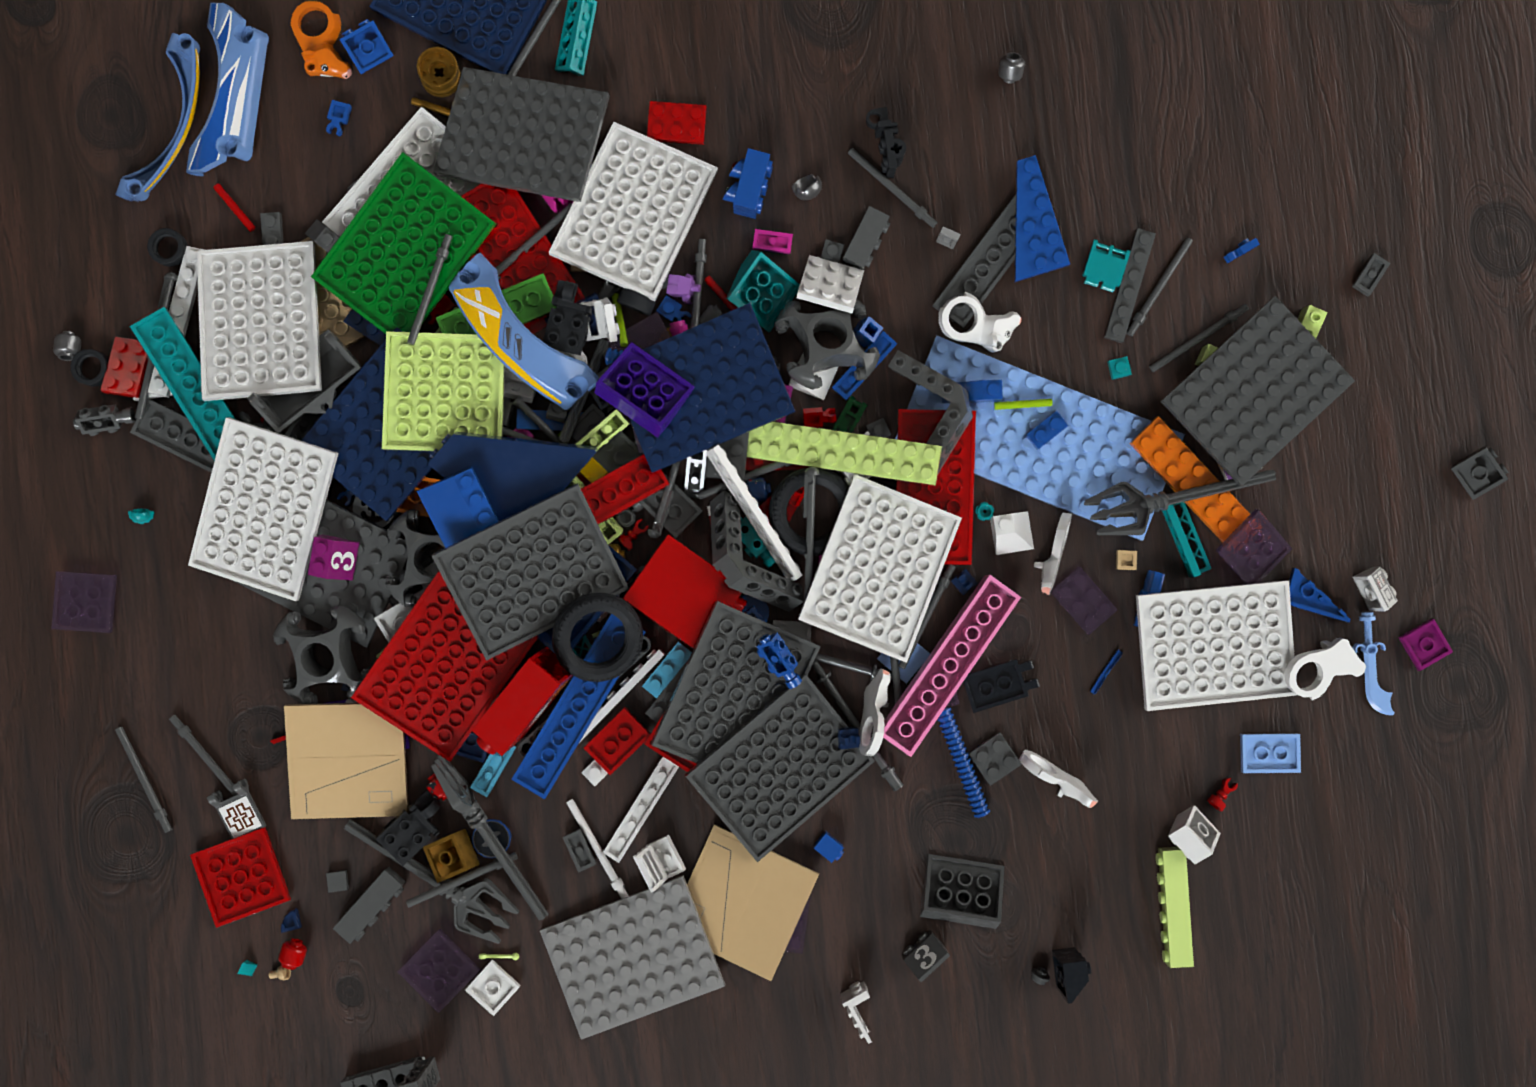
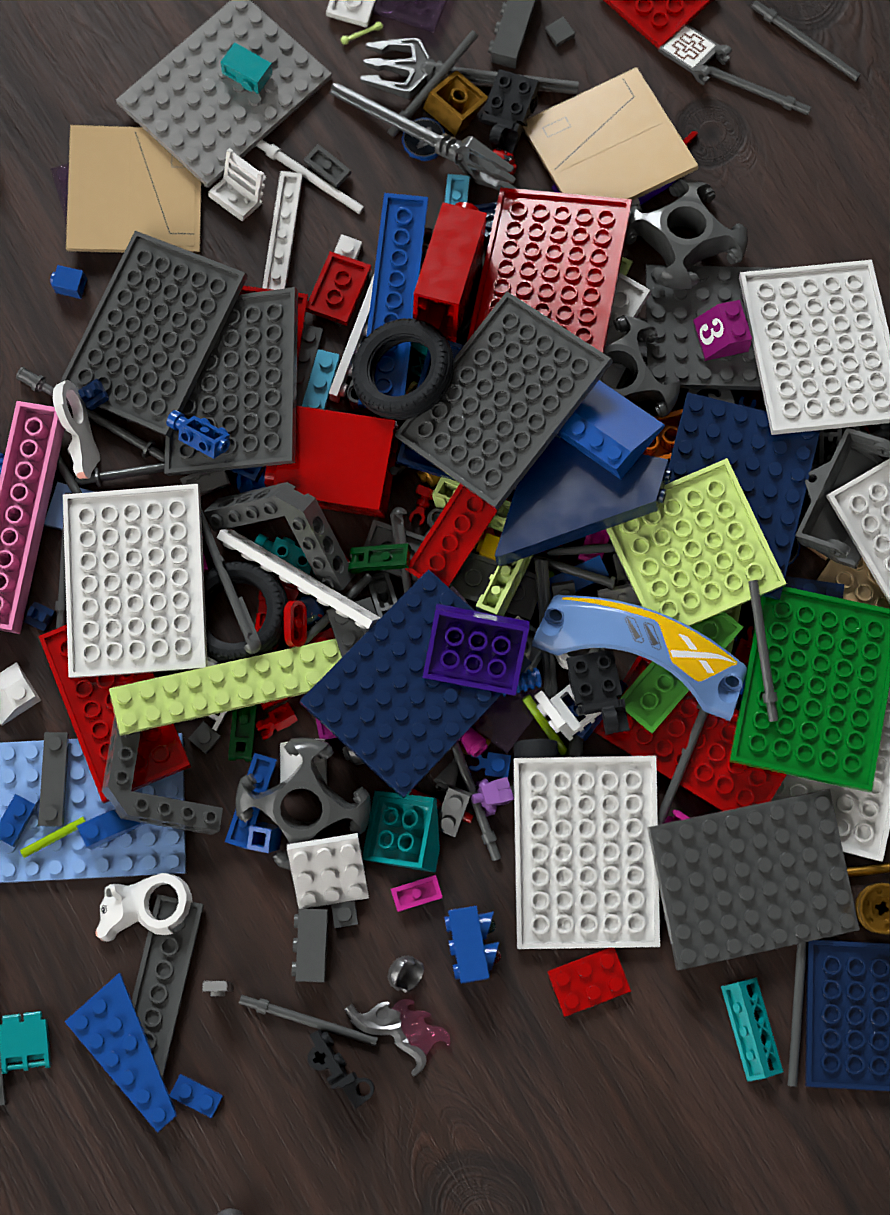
camera: 165 degrees right, 10 degrees down
(606, 962) = (246, 68): none -> teal brick
(684, 501) = (379, 558): none -> dark green plate
(717, 288) = (453, 810): none -> dark grey plate
(772, 479) = (295, 623): none -> red plate
(824, 151) = (404, 1025): none -> piece
(984, 516) = (48, 696): teal plate -> none
(996, 172) = (196, 1095): none -> blue plate
(1005, 447) = (53, 779): none -> dark grey plate

